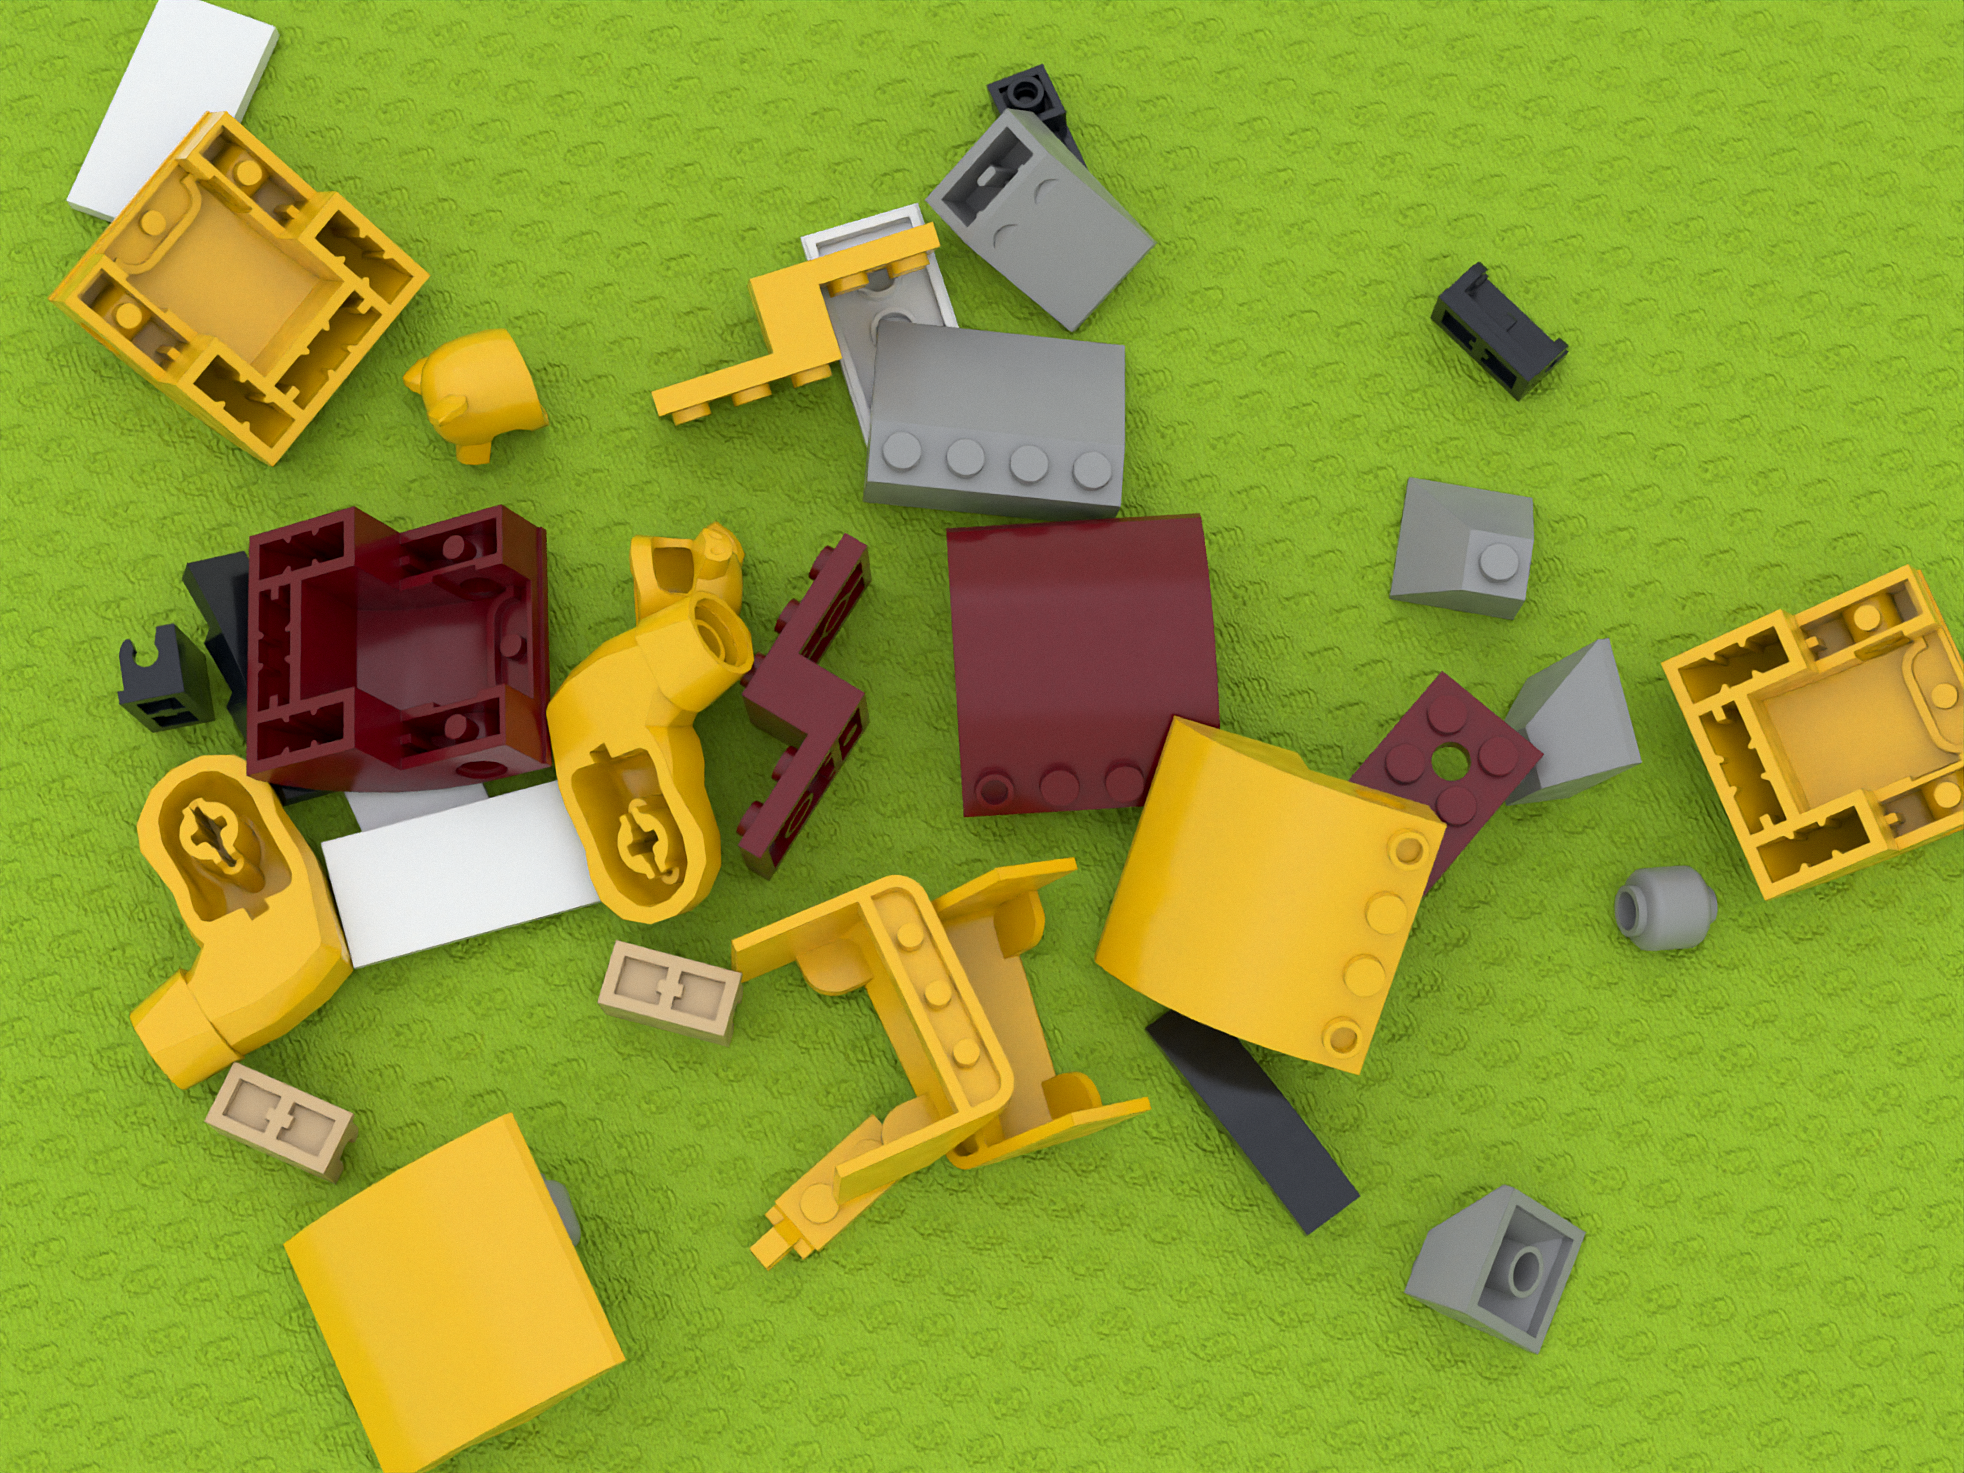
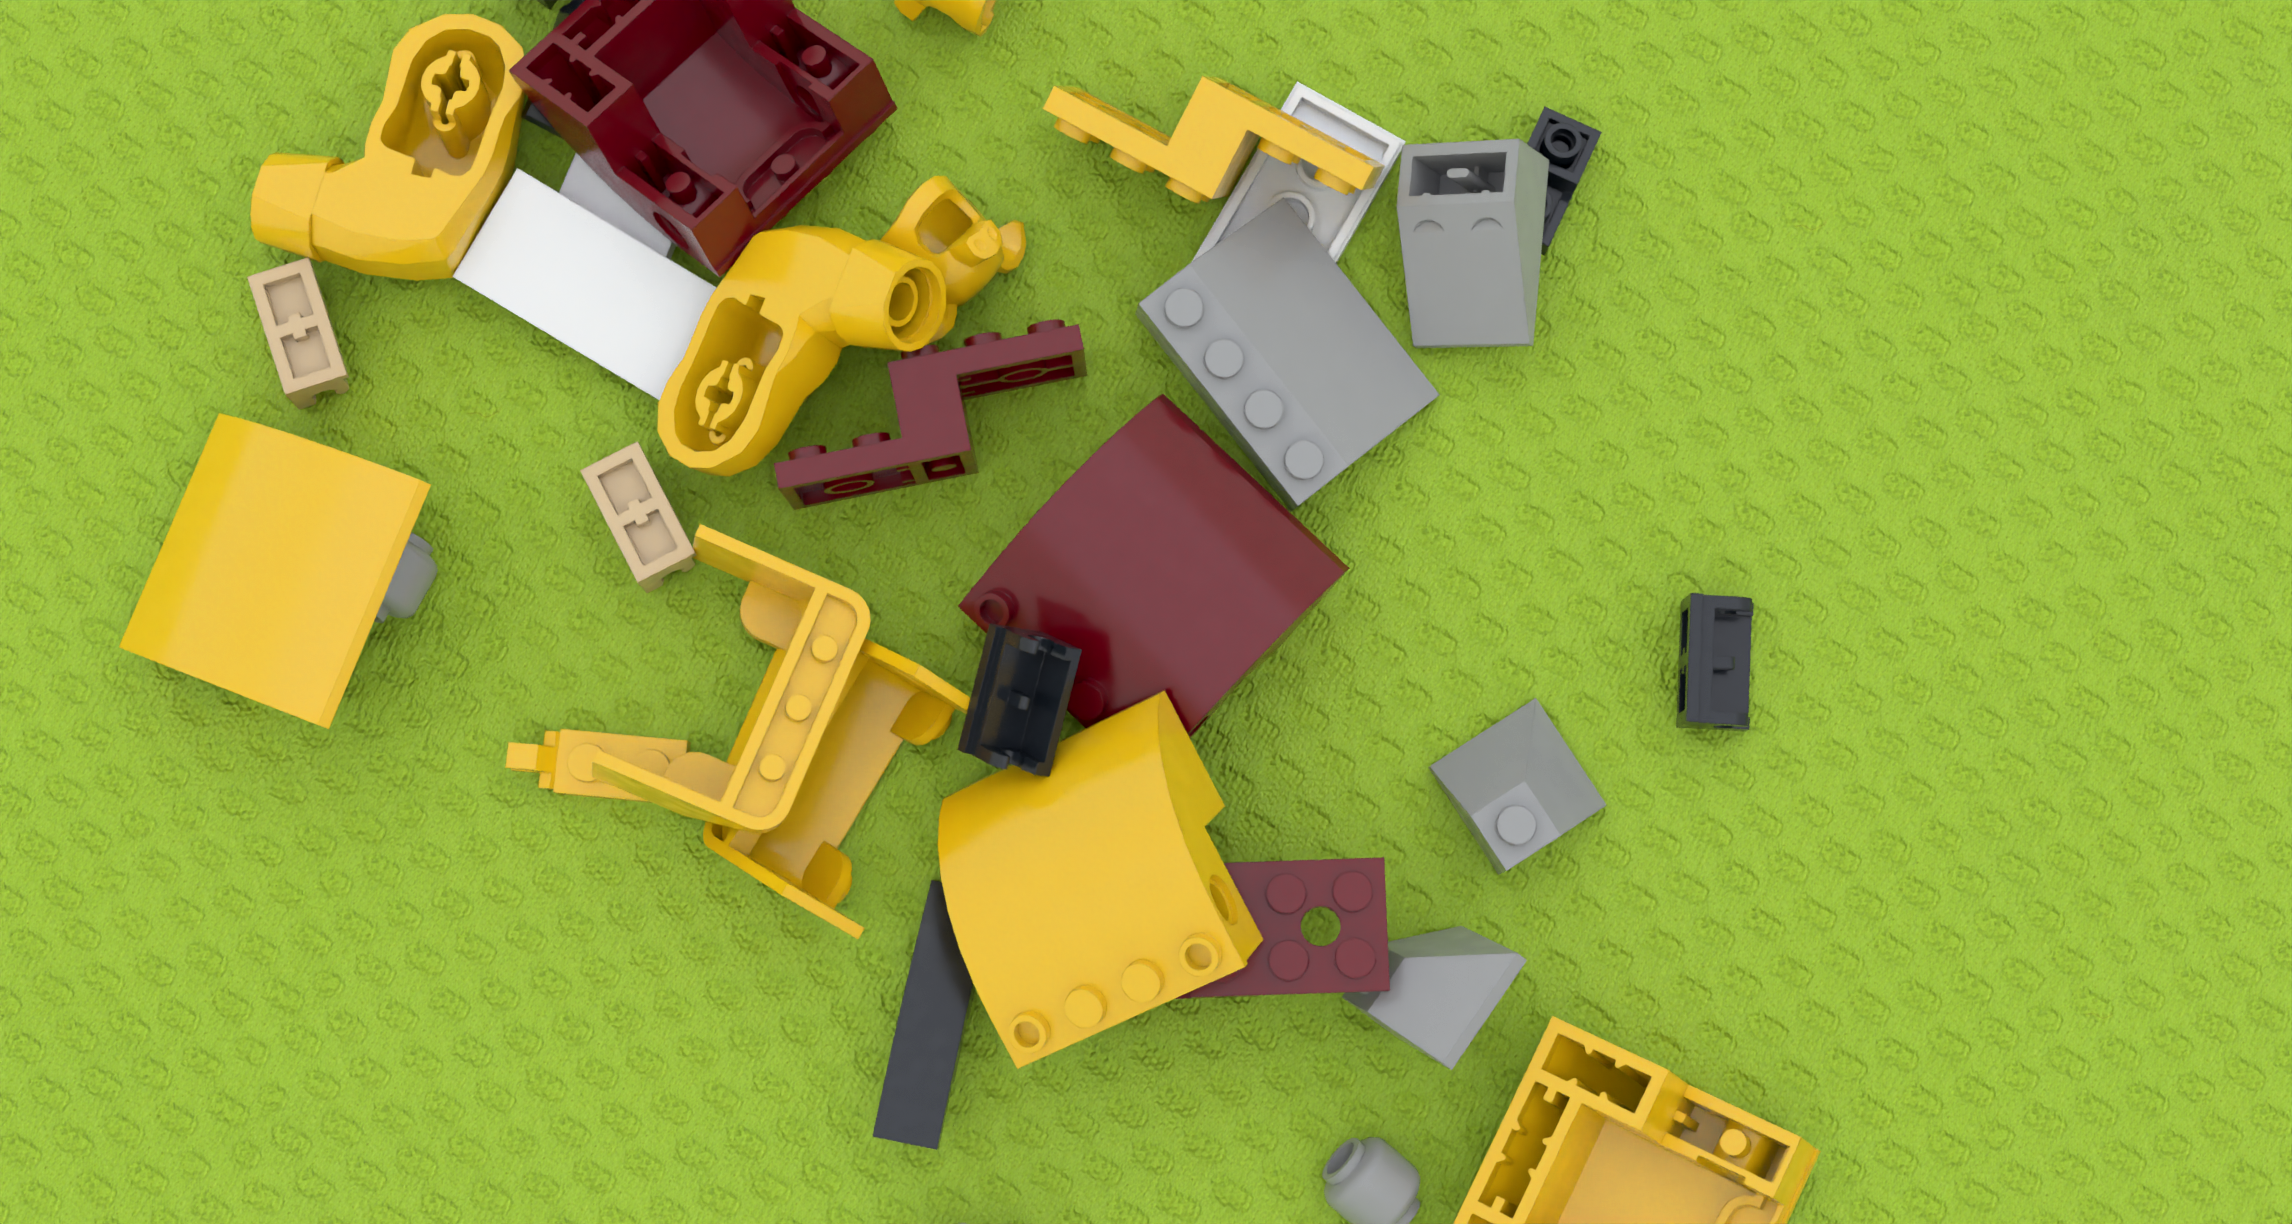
camera: 50 degrees right, 5 degrees up
(1085, 824) = (1019, 699): none -> black hinge

